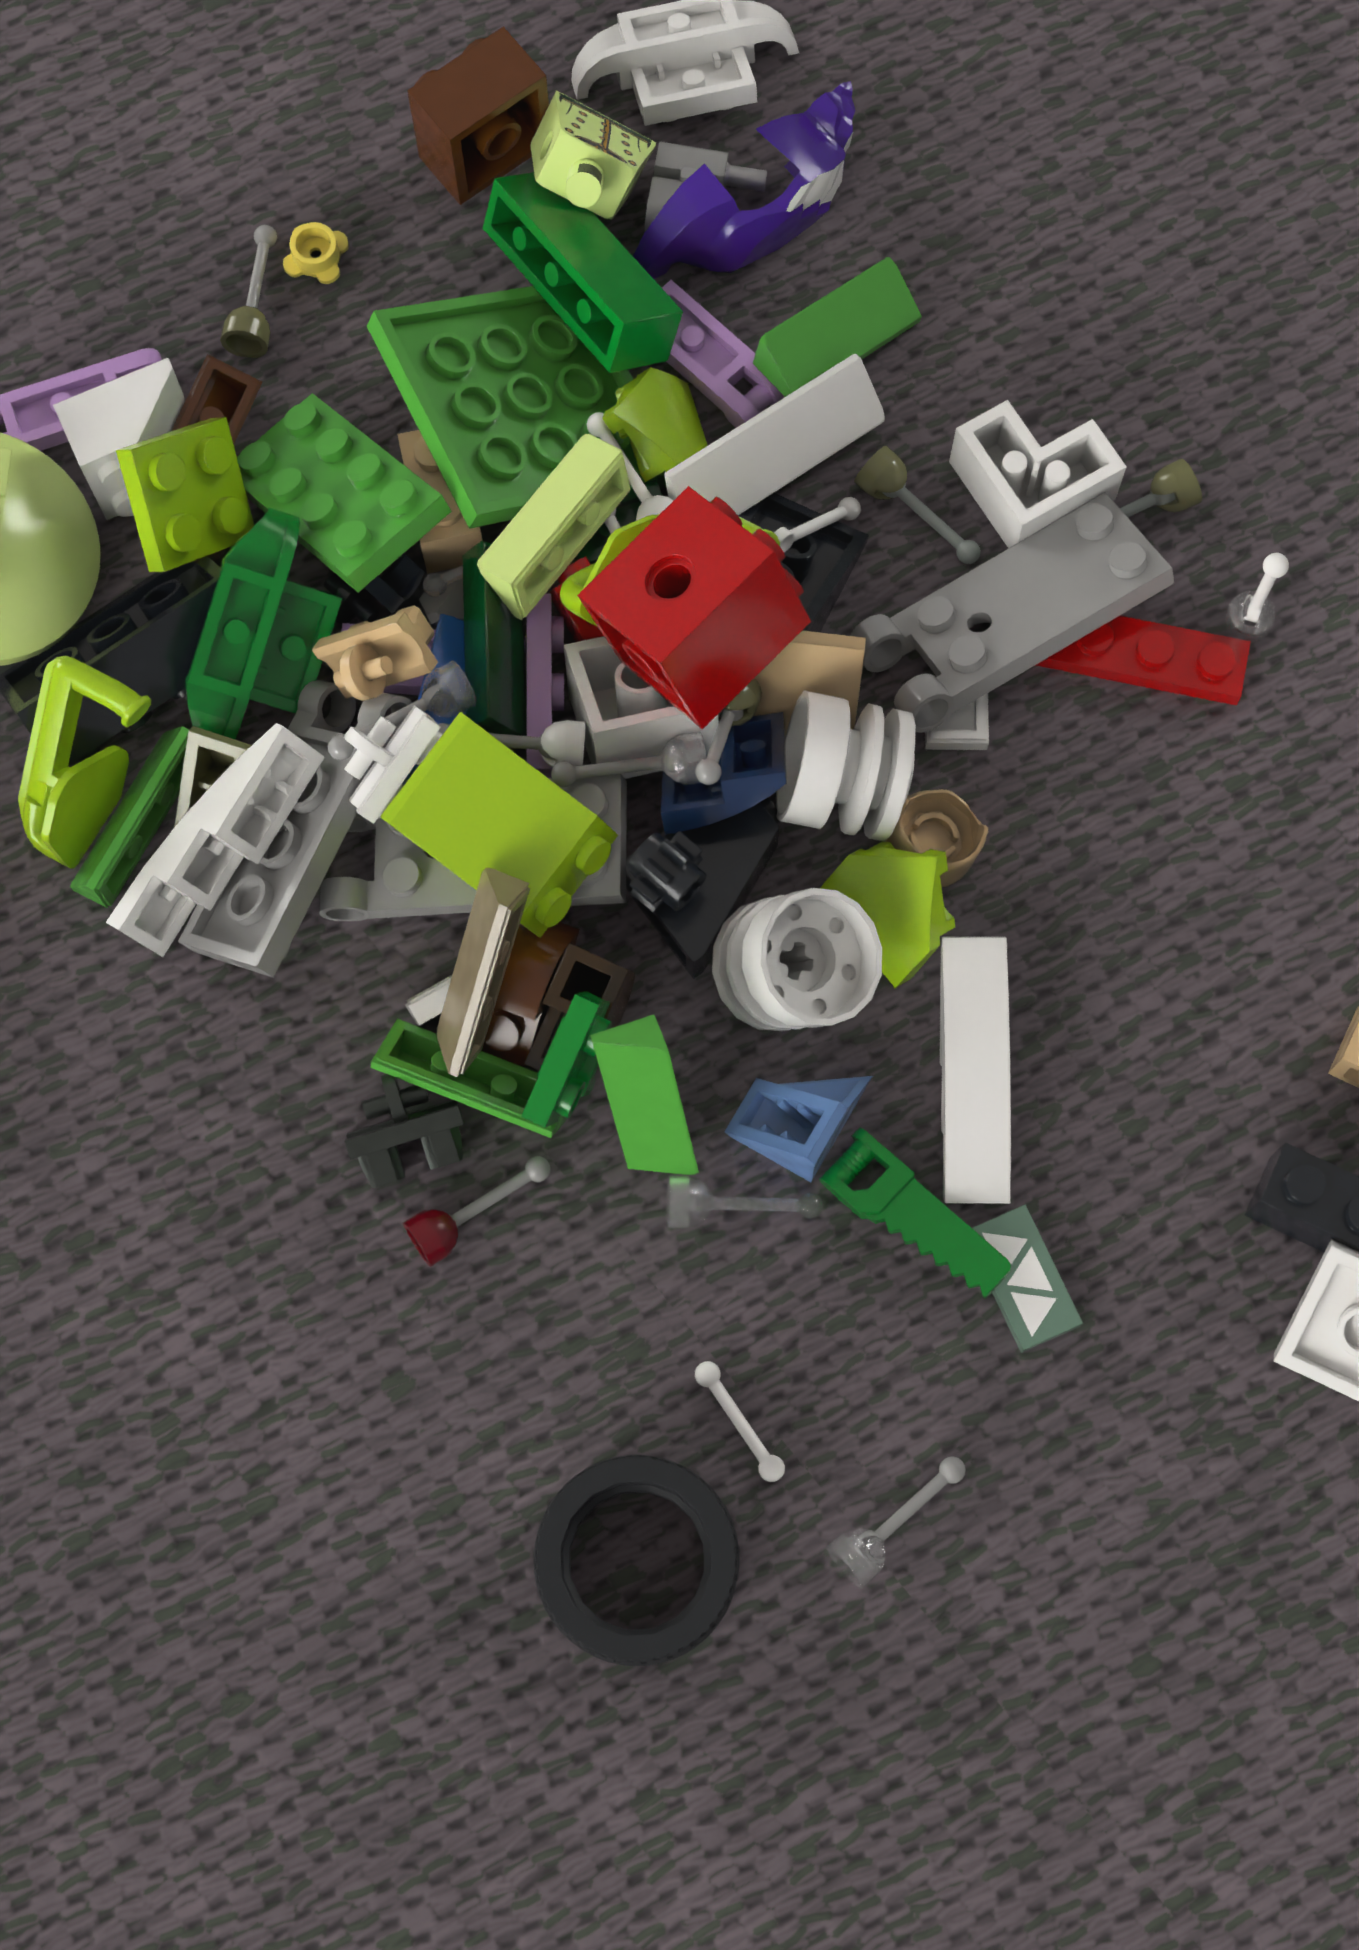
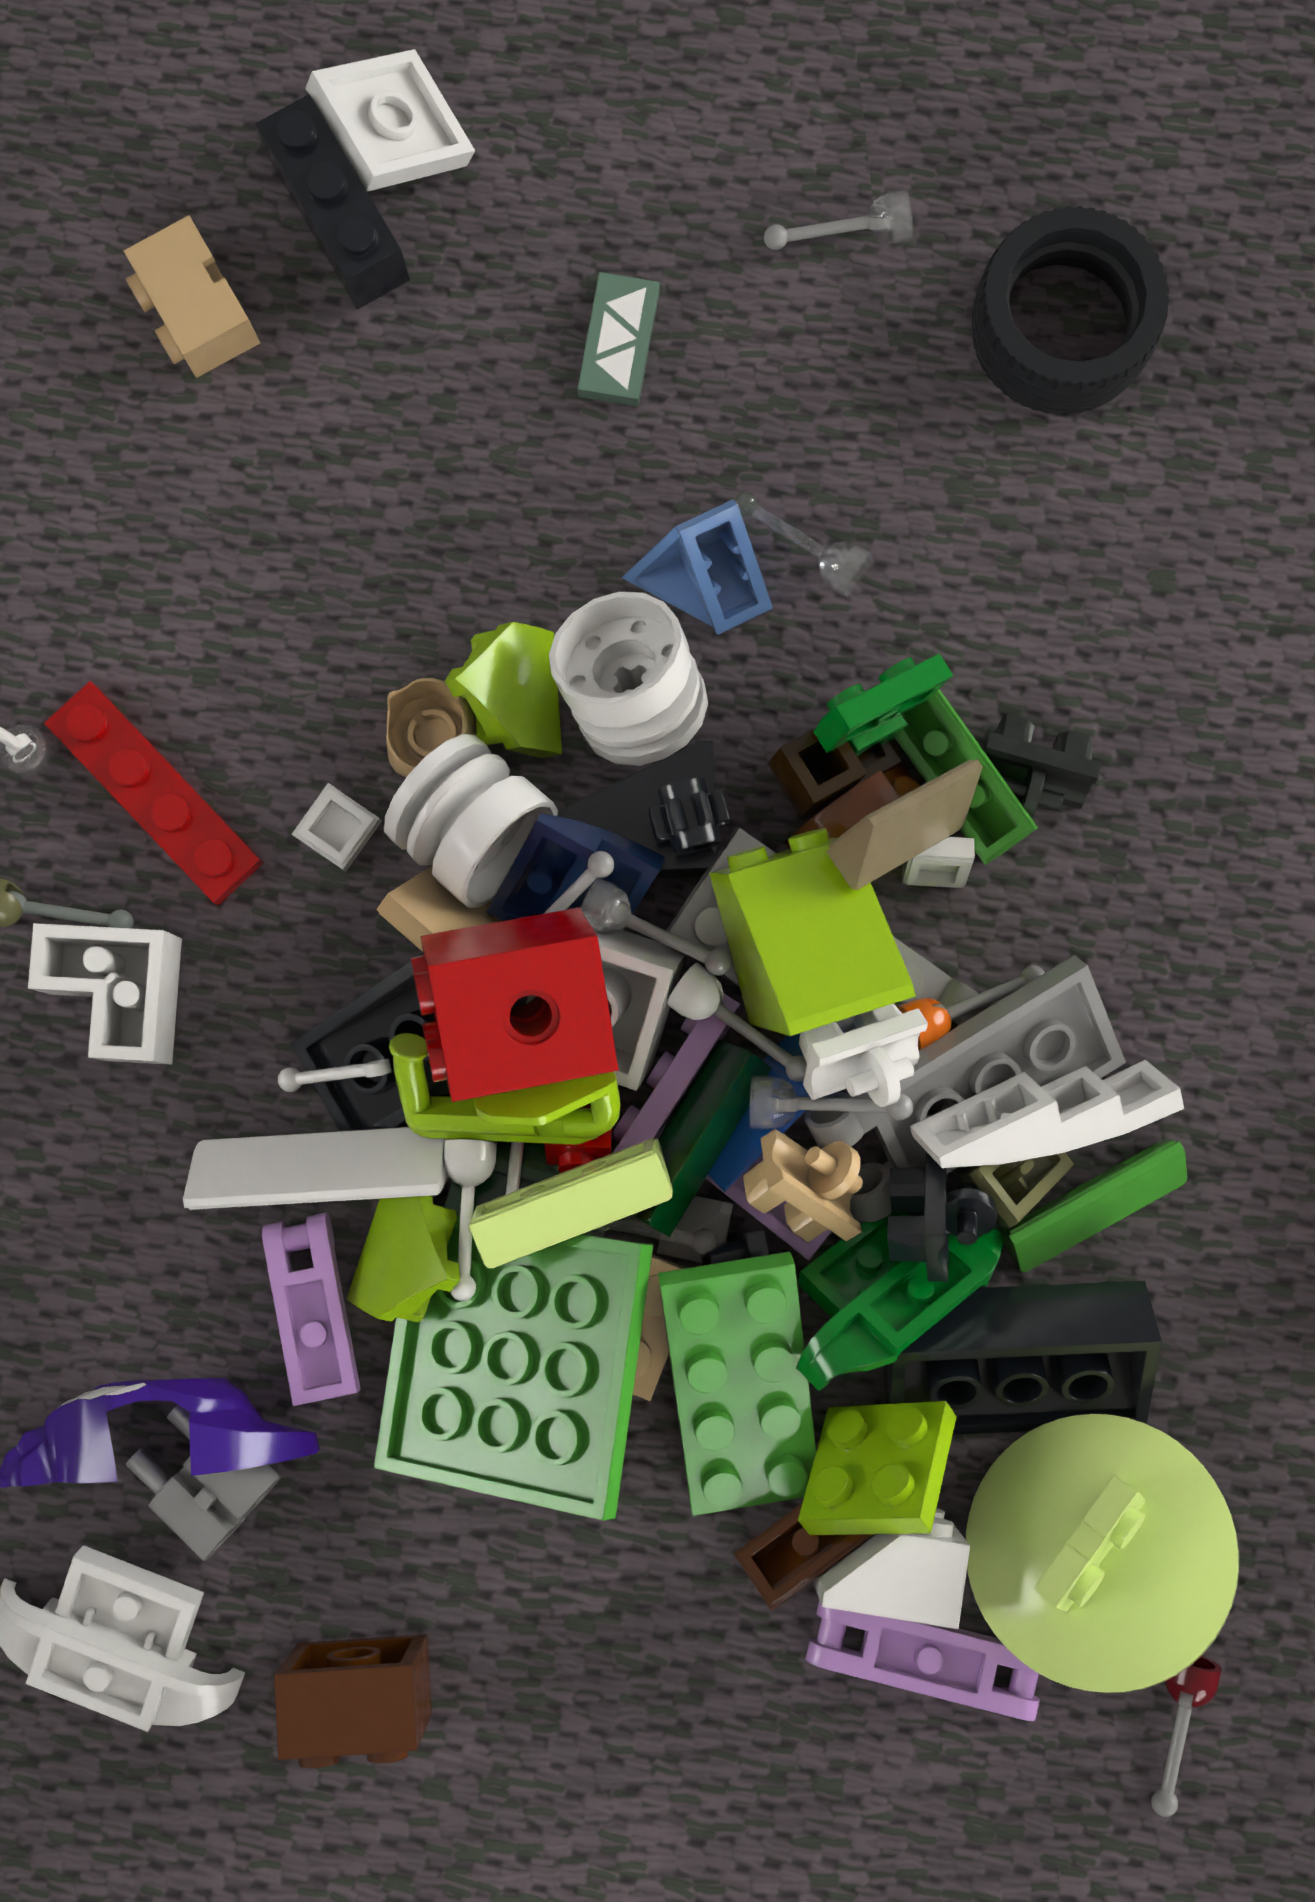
camera: 145 degrees left, 10 degrees up
(62, 803) = (1159, 1272): lime piece -> none
(246, 328) = (710, 1631): olive hinge -> none
(253, 670) = (925, 1238): none -> black hips
(310, 238) = (590, 1687): light yellow plate -> none
(361, 852) = (940, 1018): none -> hinge
(436, 1231) = (1060, 673): hinge -> none
(583, 273) = (372, 1460): green brick -> none
(587, 156) = (287, 1576): yellowish green torso -> none
(644, 1097) = (833, 642): bright green slope -> none
(770, 1466) = (912, 331): white hinge -> none
(843, 323) = (181, 1246): bright green slope -> none
(886, 478) = (237, 1082): hinge -> none
(915, 1213) = (668, 433): green piece -> none
(975, 1070) = (539, 516): white slope -> none
(1034, 597) = (194, 865): light grey hinge -> none

